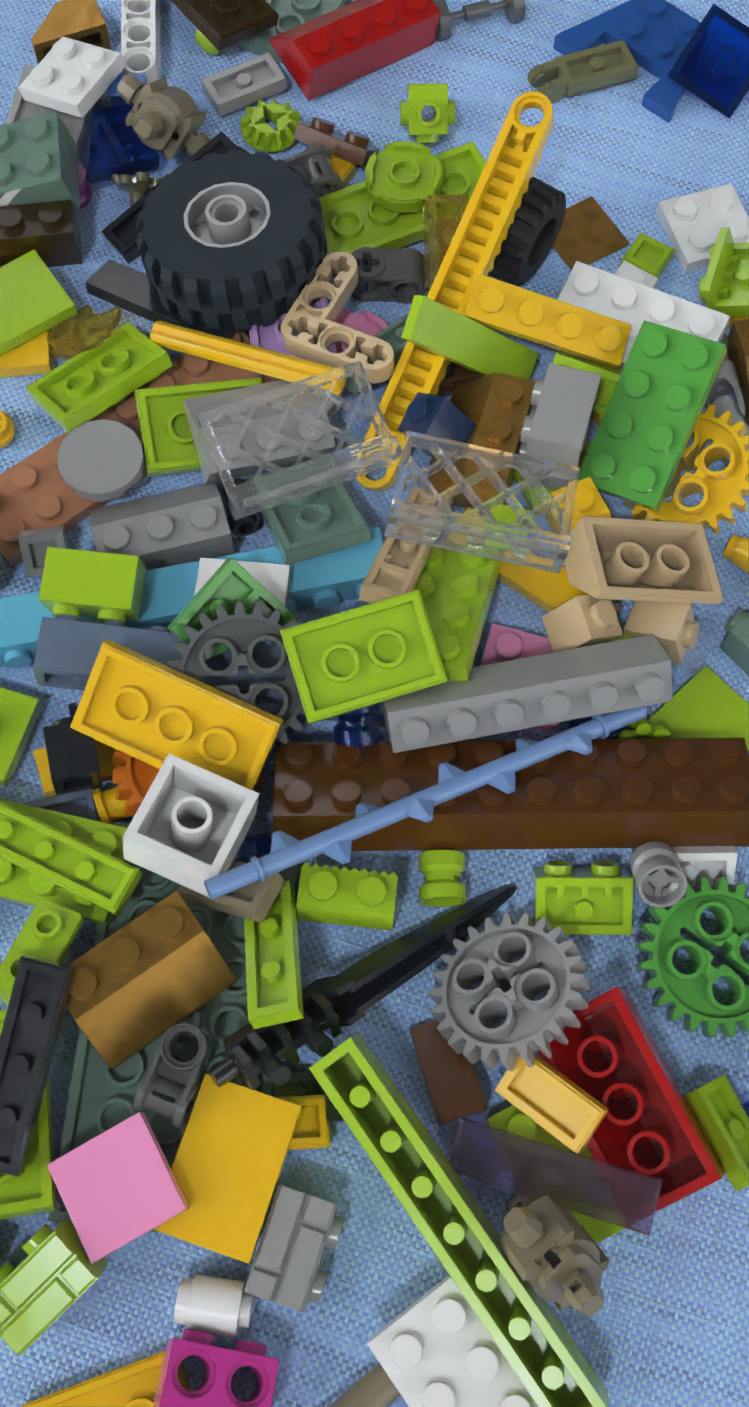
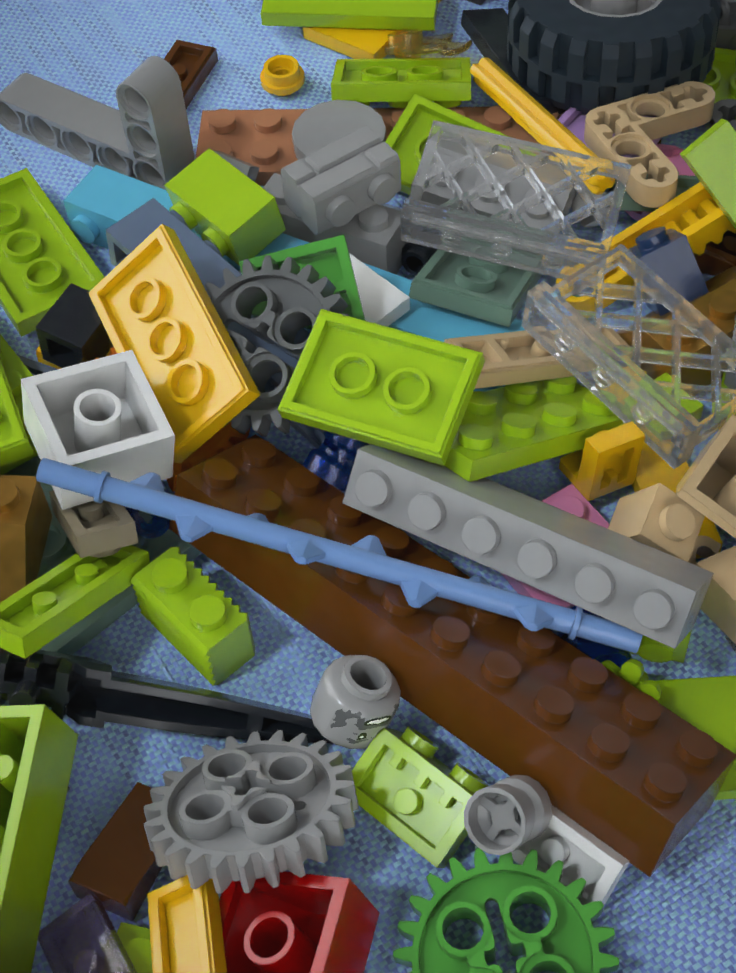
camera: 45 degrees right, 15 degrees down
(167, 505) = (341, 180): none -> light grey brick
(441, 872) = (296, 668): lime wheel -> none
(508, 875) = (354, 701): none -> light grey head
(509, 595) = (606, 461): none -> yellow bracket

